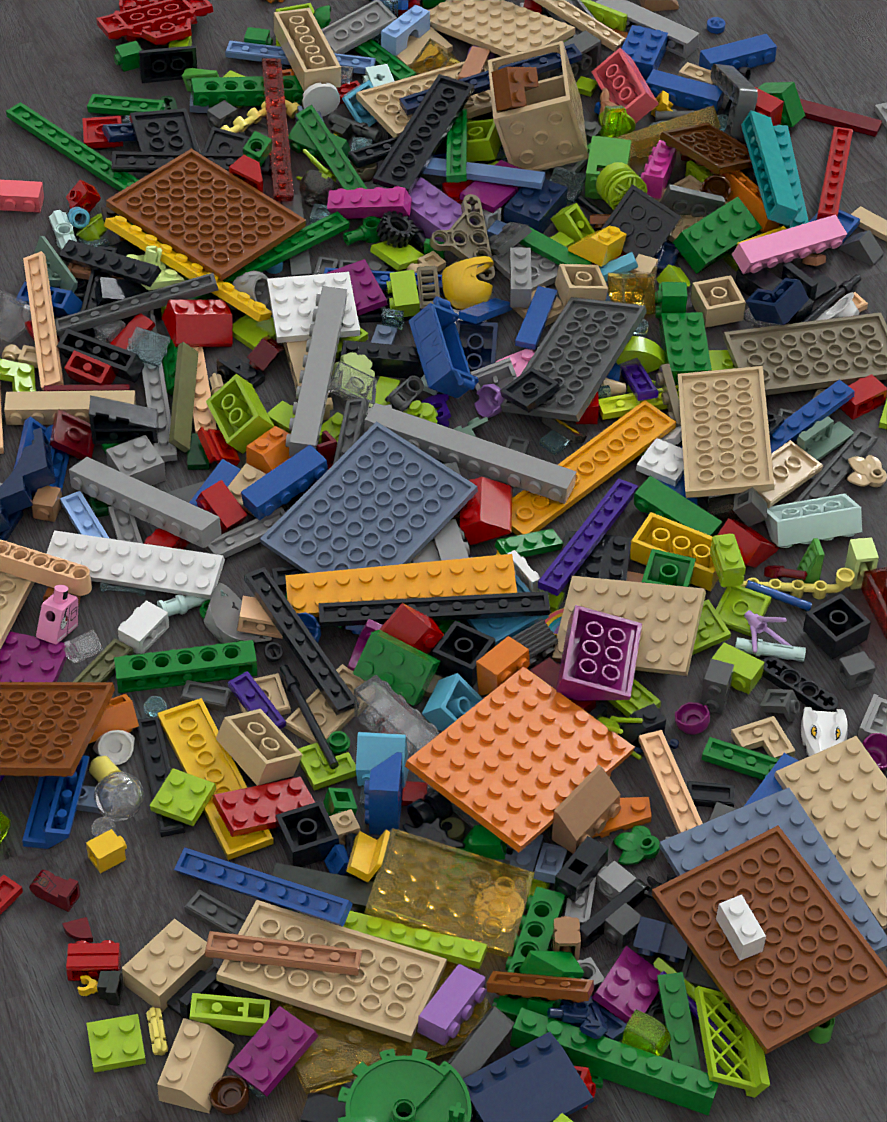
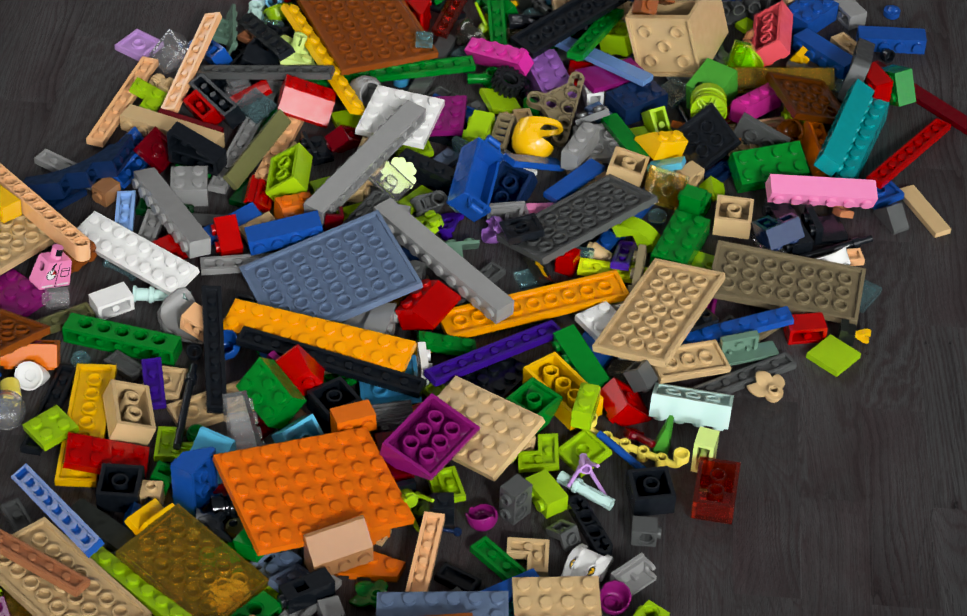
camera: 25 degrees right, 5 degrees down
(283, 210) = (424, 39): none -> clear light blue plate

